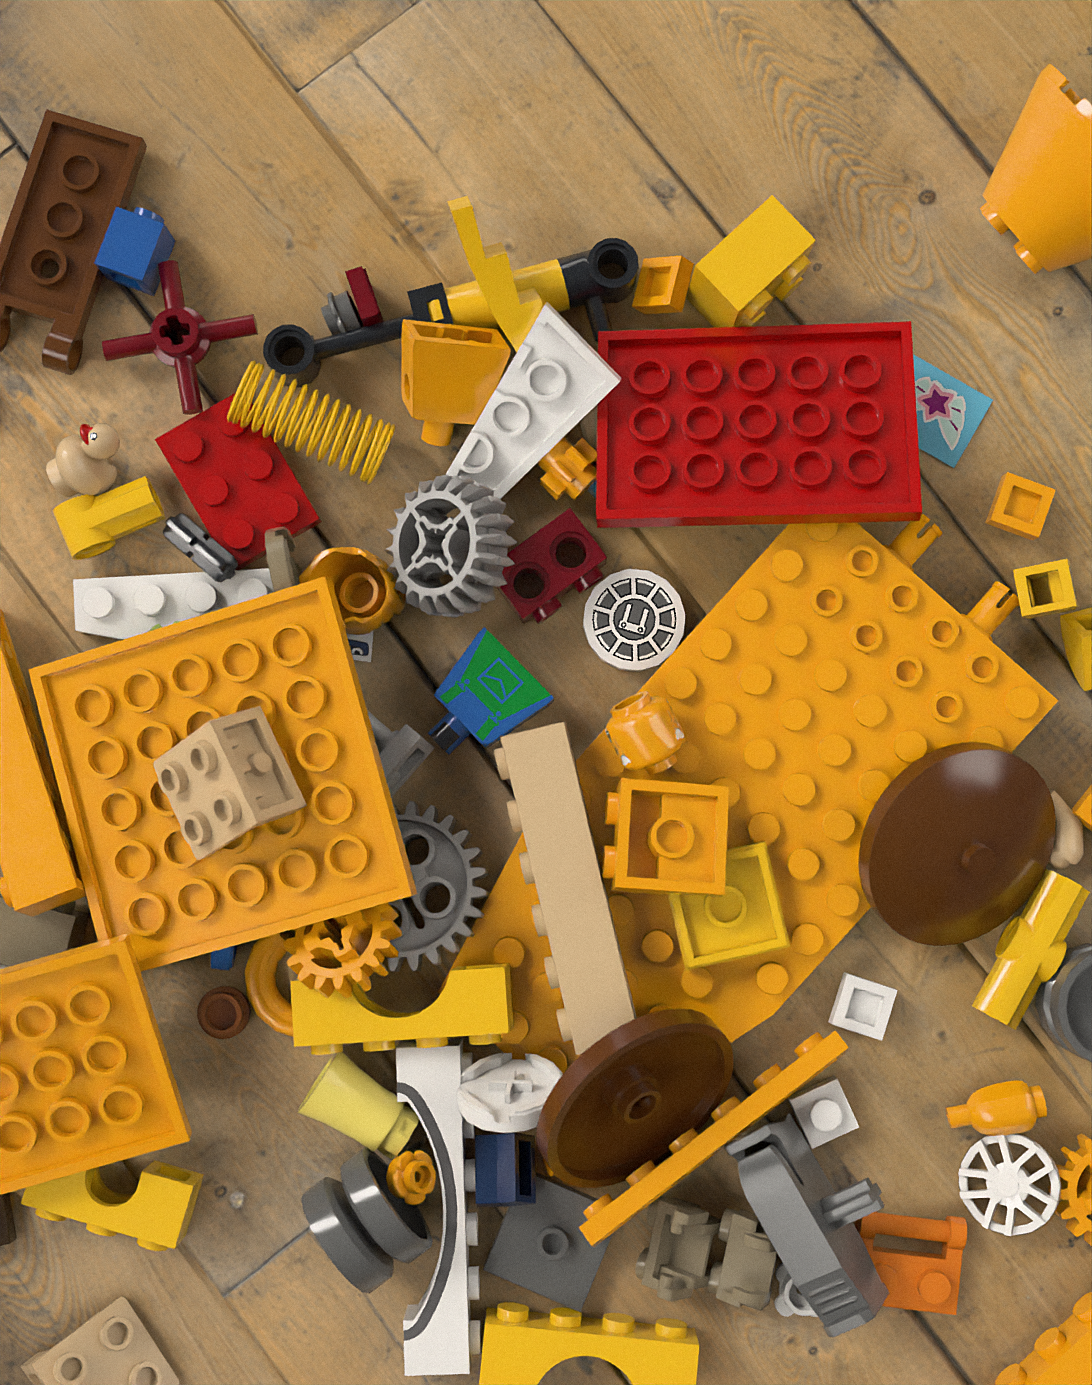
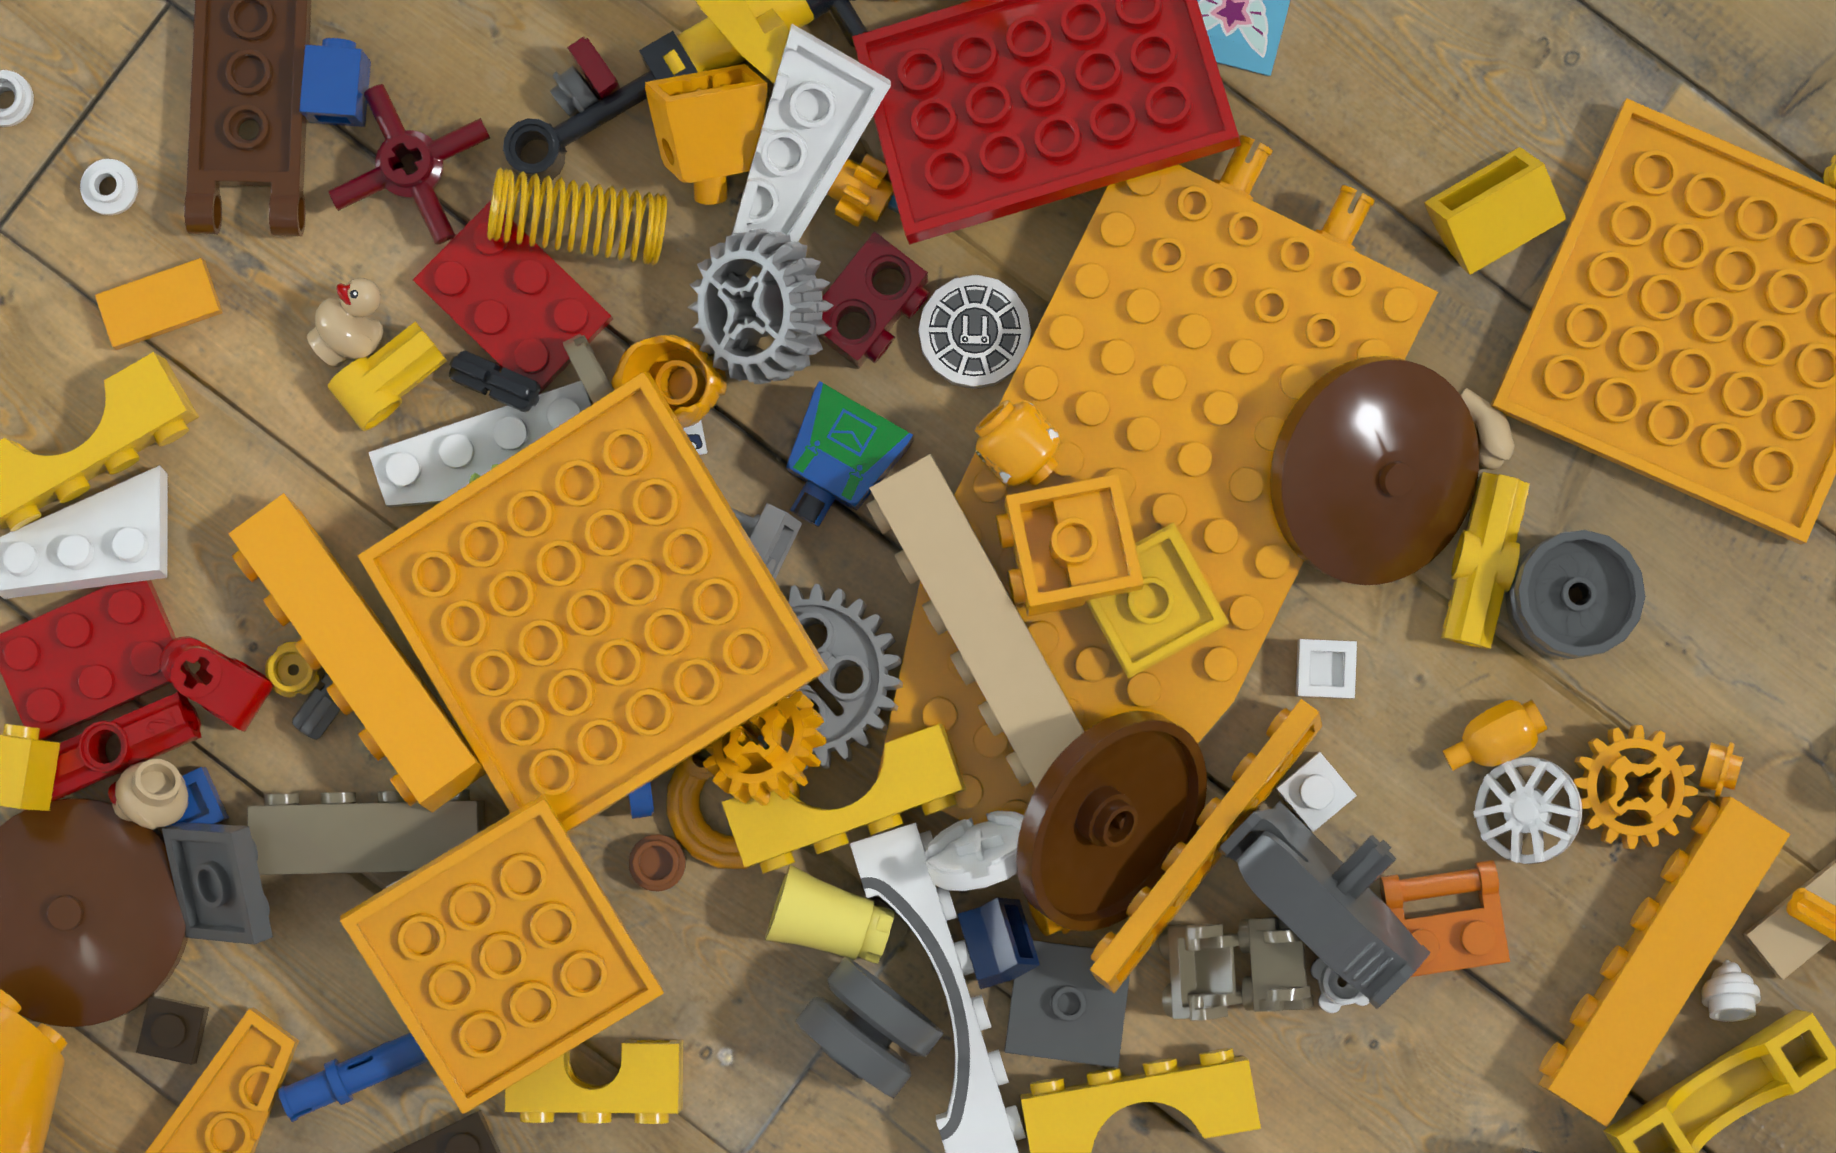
camera: 10 degrees left, 0 degrees up
(227, 780) = (602, 608): tan bracket -> none
(401, 1176) = (903, 971): light orange plate -> none
(1020, 506) = (1350, 98): light orange plate -> none
(1045, 589) = (1395, 180): yellow leg -> none

